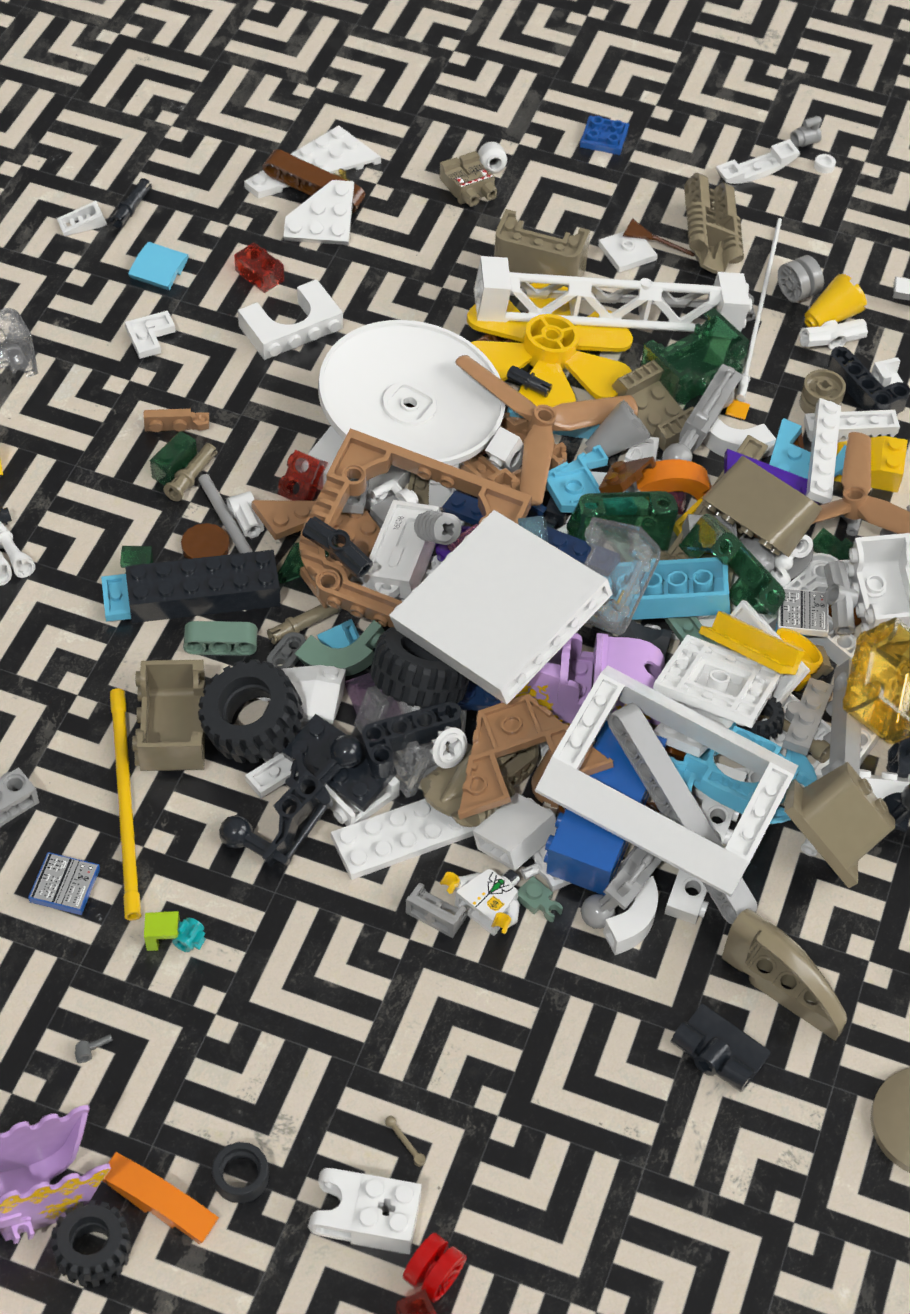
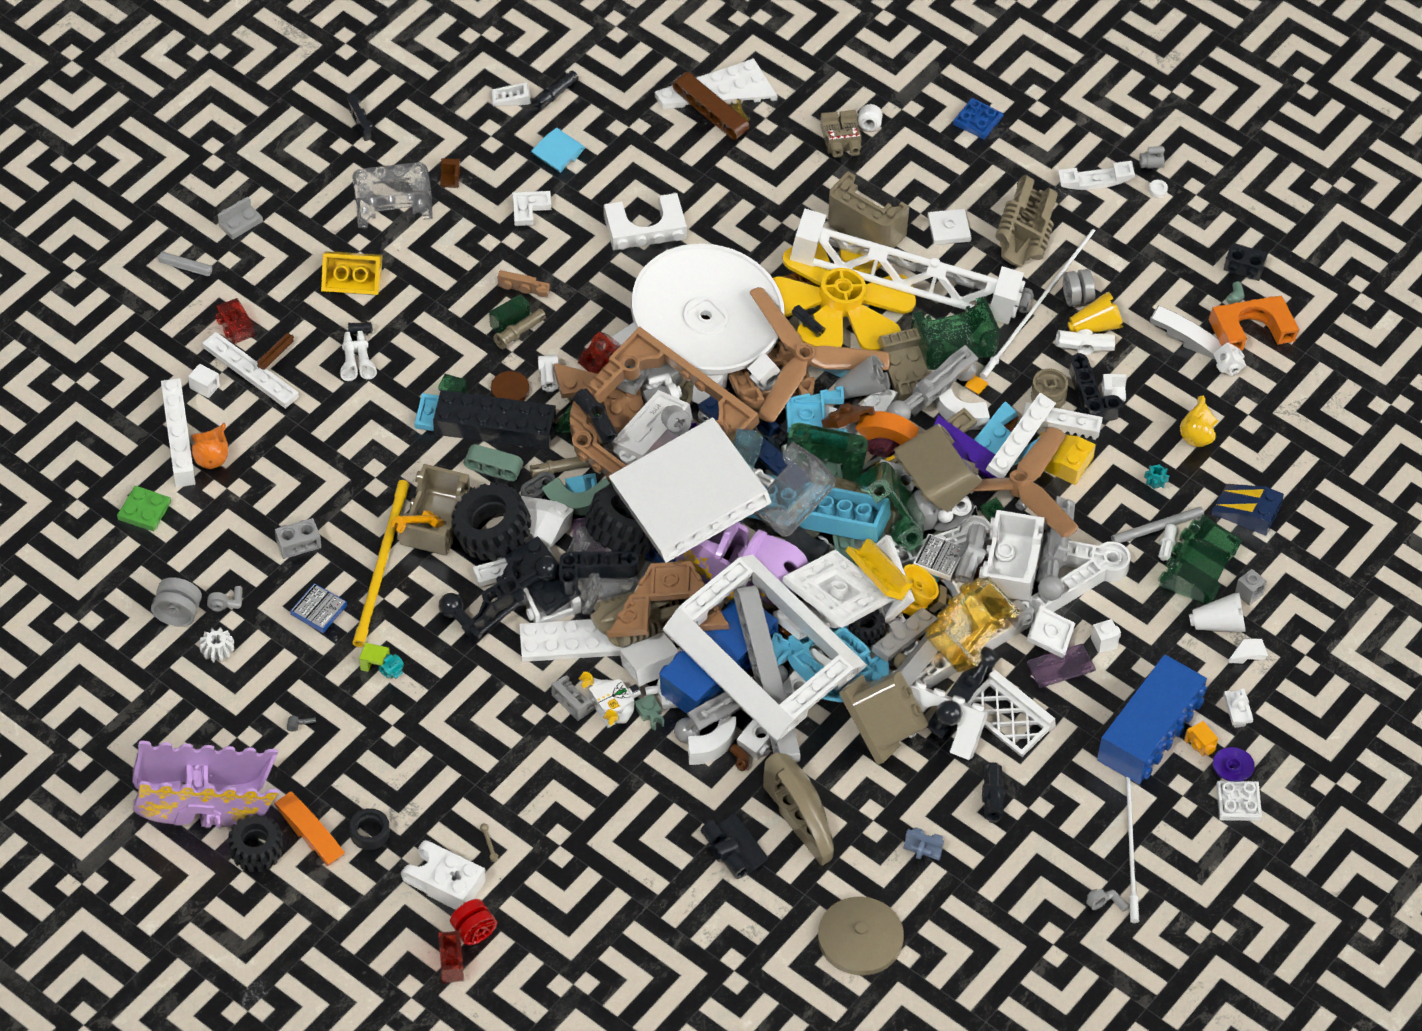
camera: 20 degrees right, 0 degrees up
(41, 317) = (450, 173): none -> reddish brown panel
(162, 728) = (426, 517): none -> light orange hinge
(224, 514) = (533, 368): light grey piece -> none
(259, 267) = (637, 170): clear red brick -> none
(323, 216) = (707, 138): white plate -> none
(457, 747) = (629, 584): white gear -> none
(638, 231) = (963, 211): reddish brown piece -> none
(678, 926) = (743, 757): none -> reddish brown arm
(781, 576) = (936, 527): white hinge -> none

